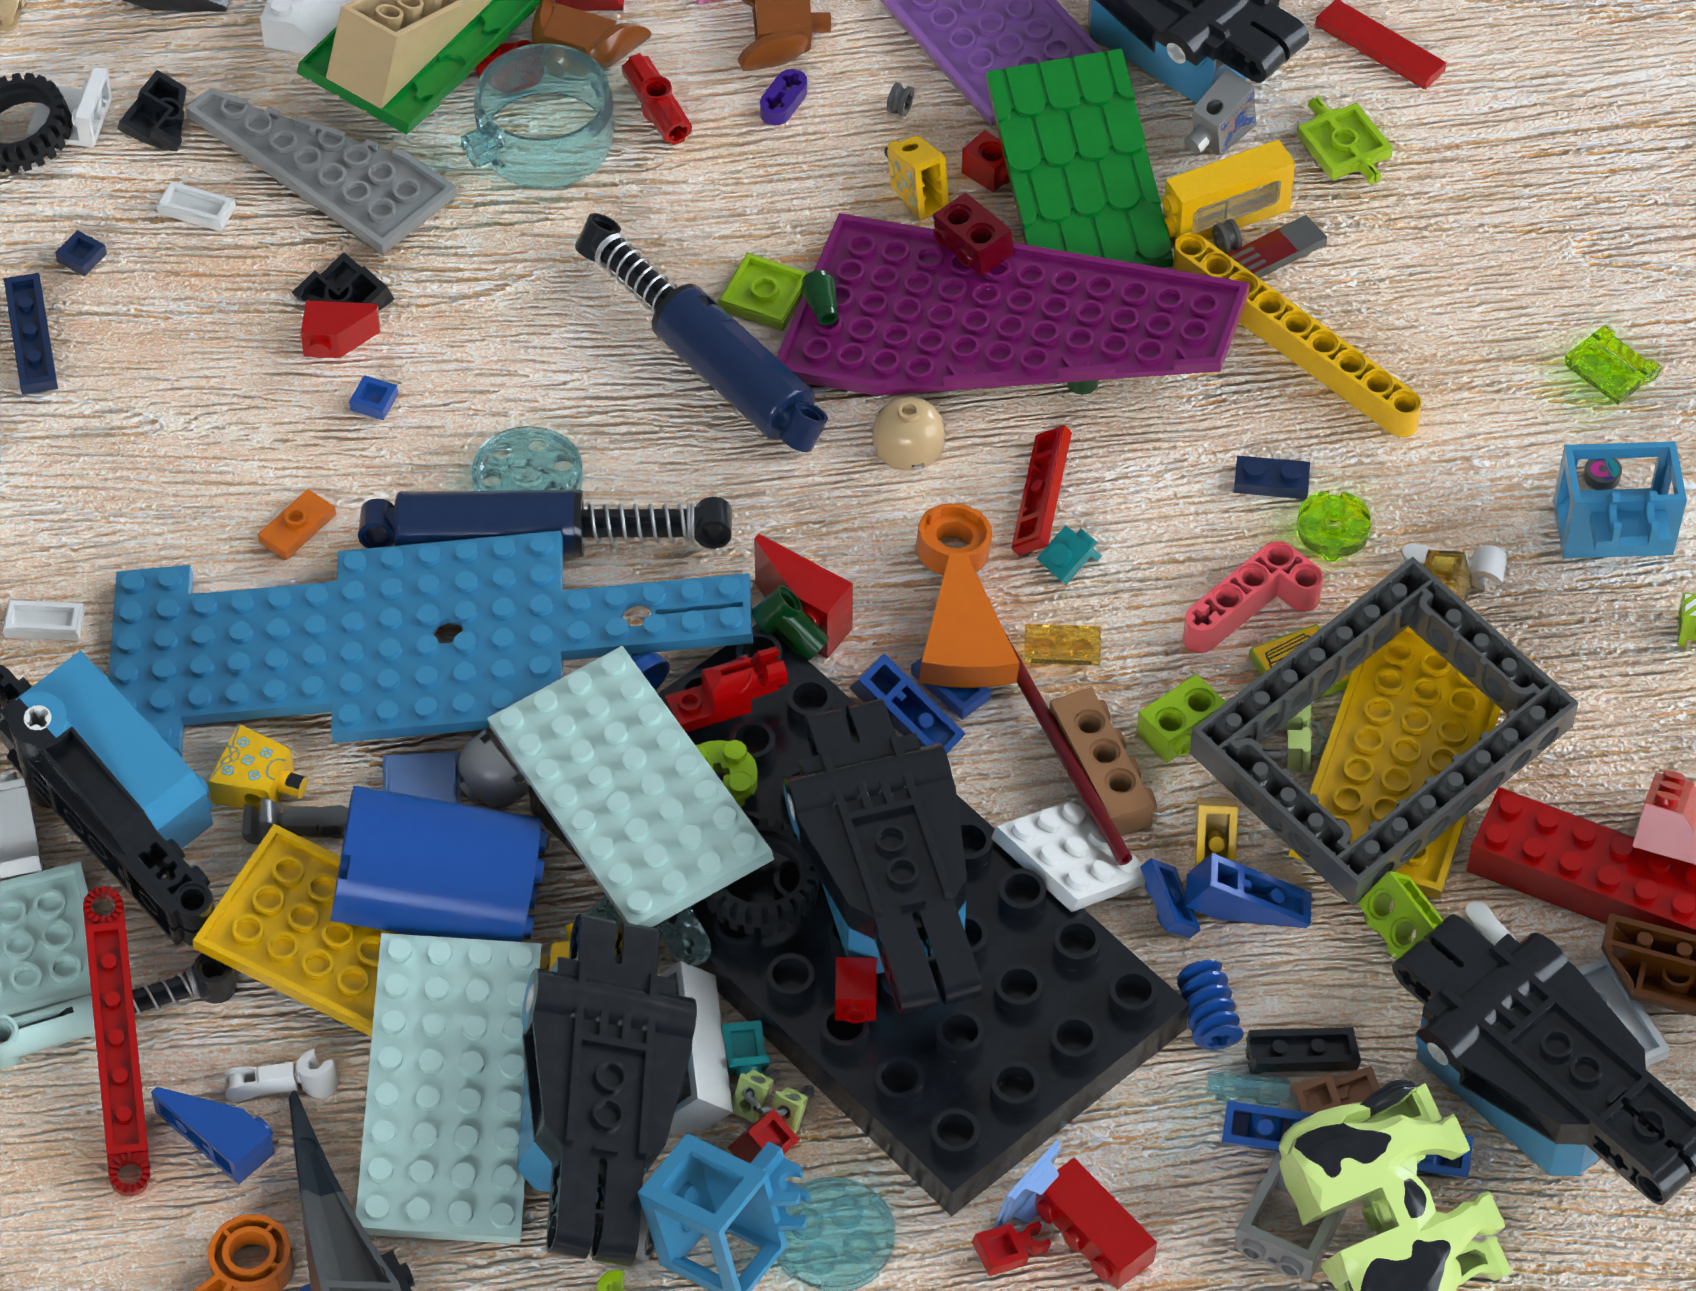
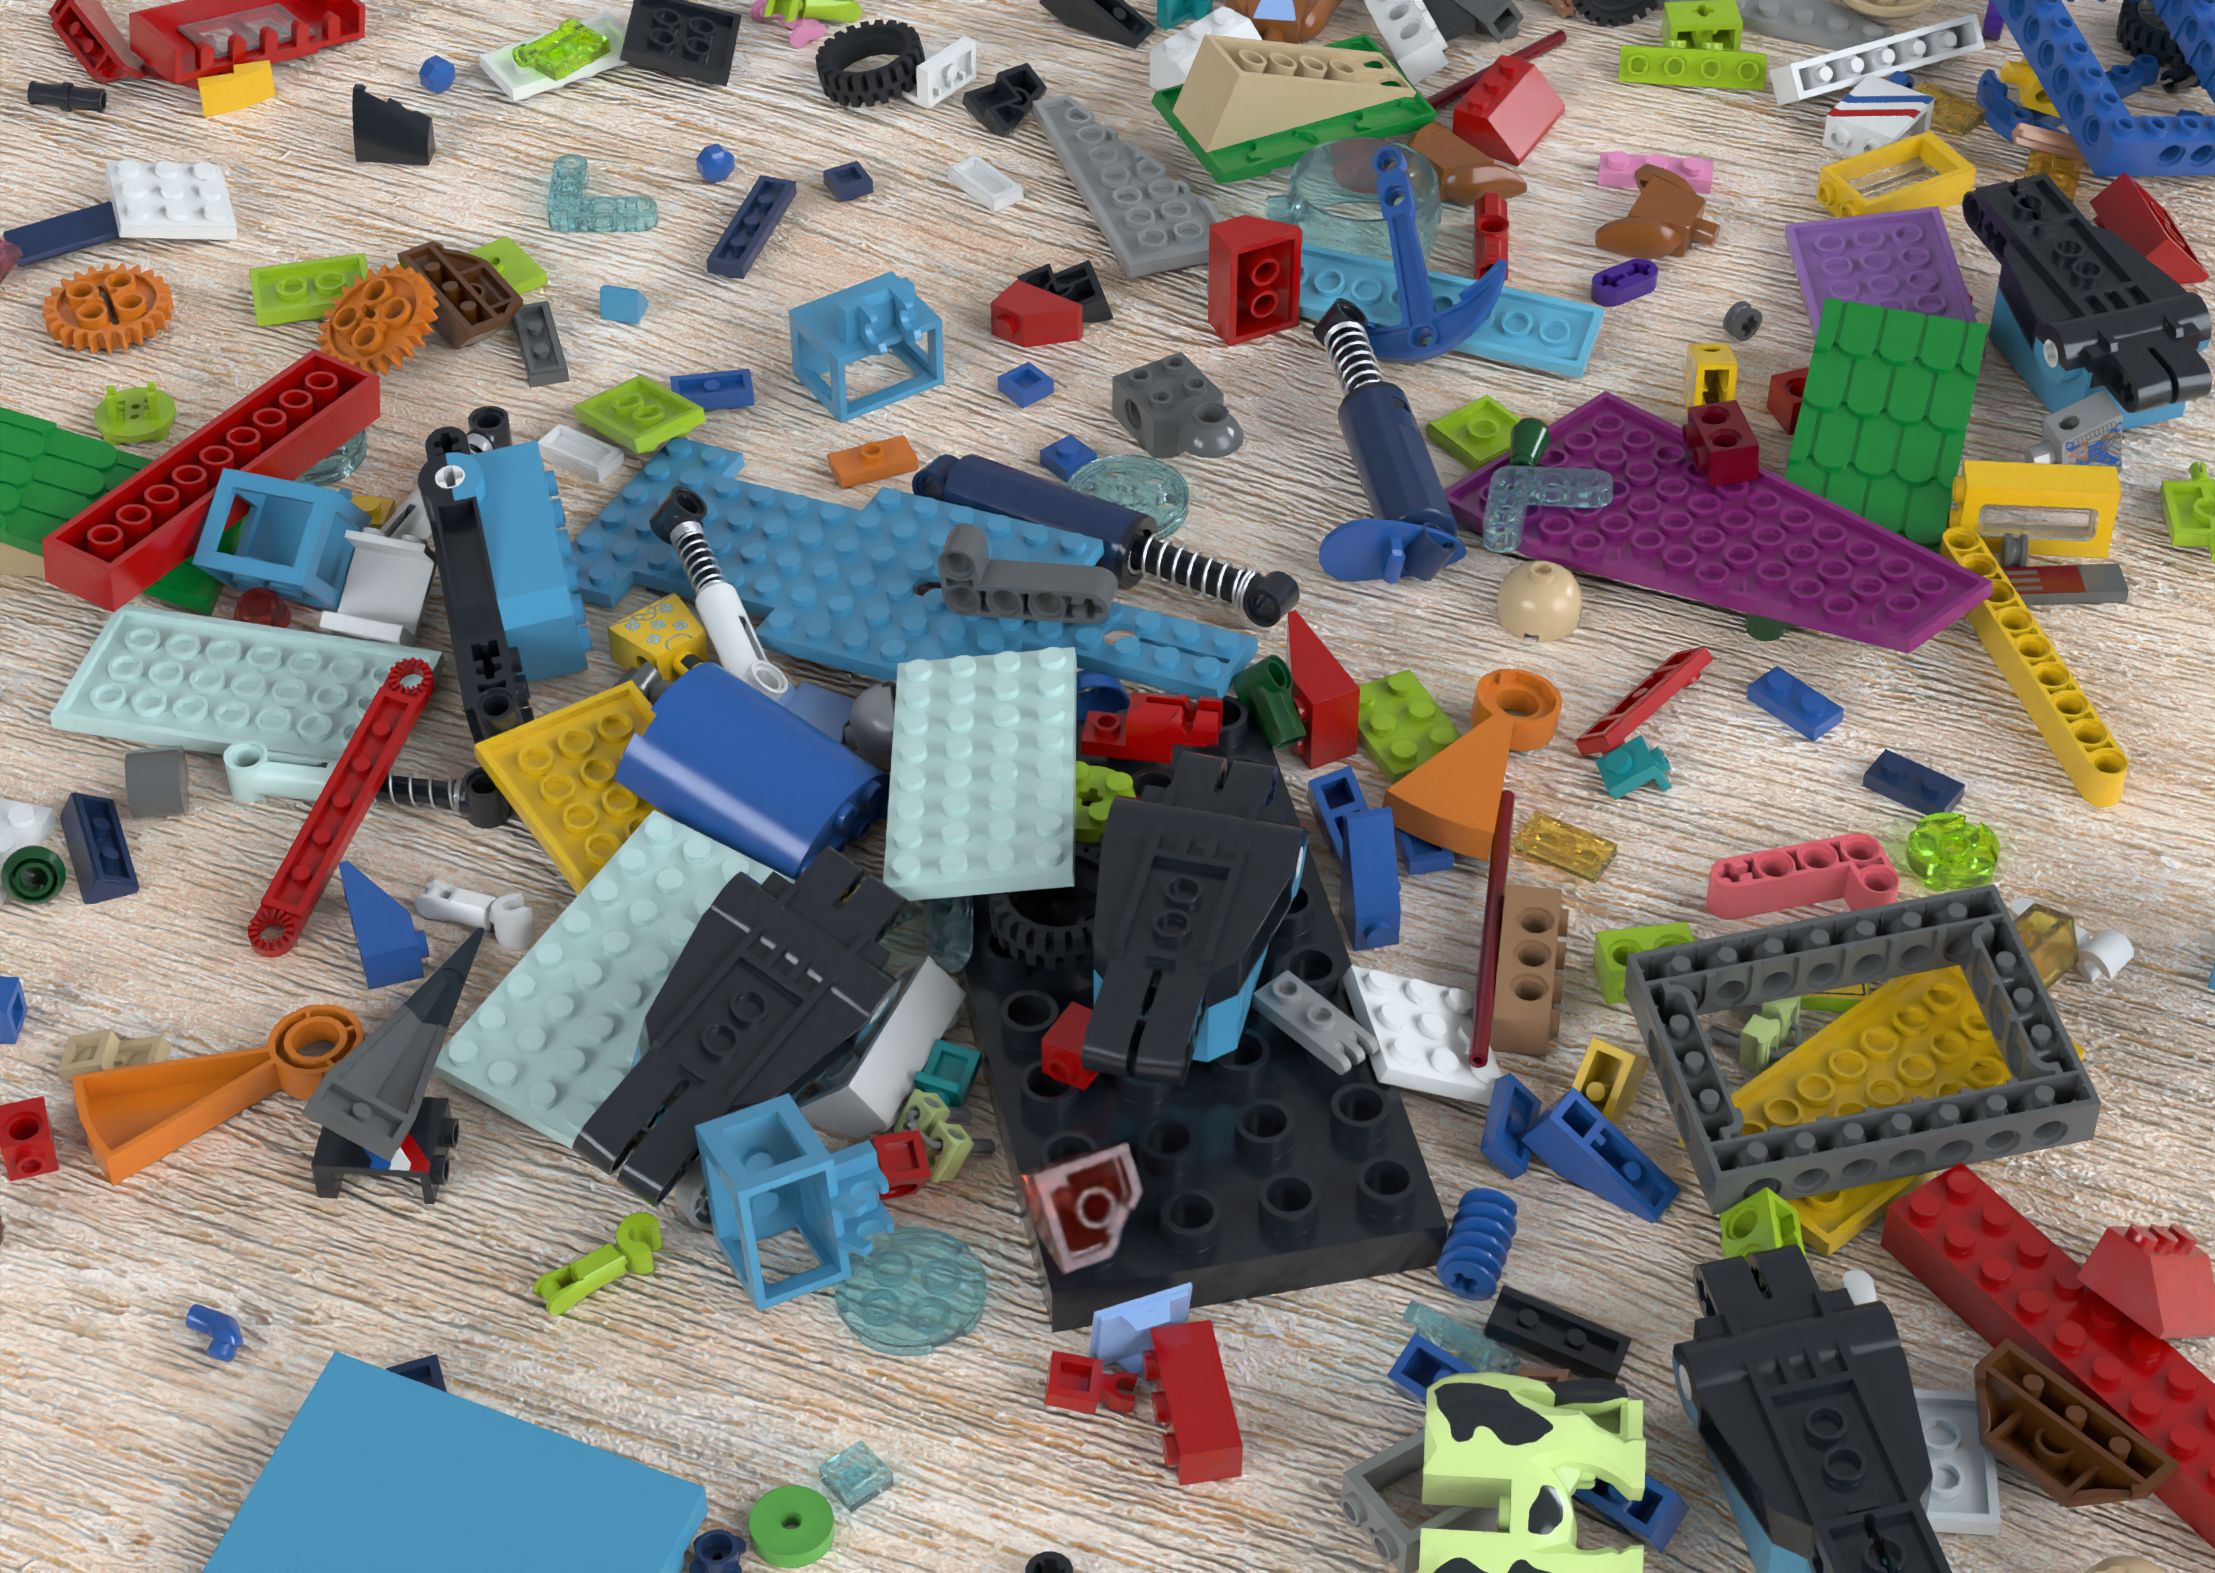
camera: 30 degrees right, 10 degrees down
(77, 564) = (640, 414): none -> lime plate
(116, 513) = (716, 389): none -> blue plate
(210, 661) = (720, 608): none -> piece
(219, 411) = (862, 324): none -> dark azure piece
(453, 453) = (1066, 457): none -> blue plate
(507, 224) = (1253, 277): none -> red slope
(517, 372) = (1174, 410): none -> dark grey brick
(544, 607) = (1020, 589): none -> dark grey beam
(628, 189) = (1519, 329): none -> medium azure plate
(654, 199) = (1419, 314): none -> blue piece
(765, 442) = (1375, 549): none -> blue shield
(847, 338) = (1576, 489): none -> clear light blue beam
(884, 593) = (1401, 724): none -> lime plate
(946, 1116) = (1082, 1203): none -> clear red slope
(958, 732) = (1370, 880): none -> blue slope
(1012, 889) = (1314, 1022): none -> light grey hinge
(1146, 441) = (1795, 703): none -> blue plate

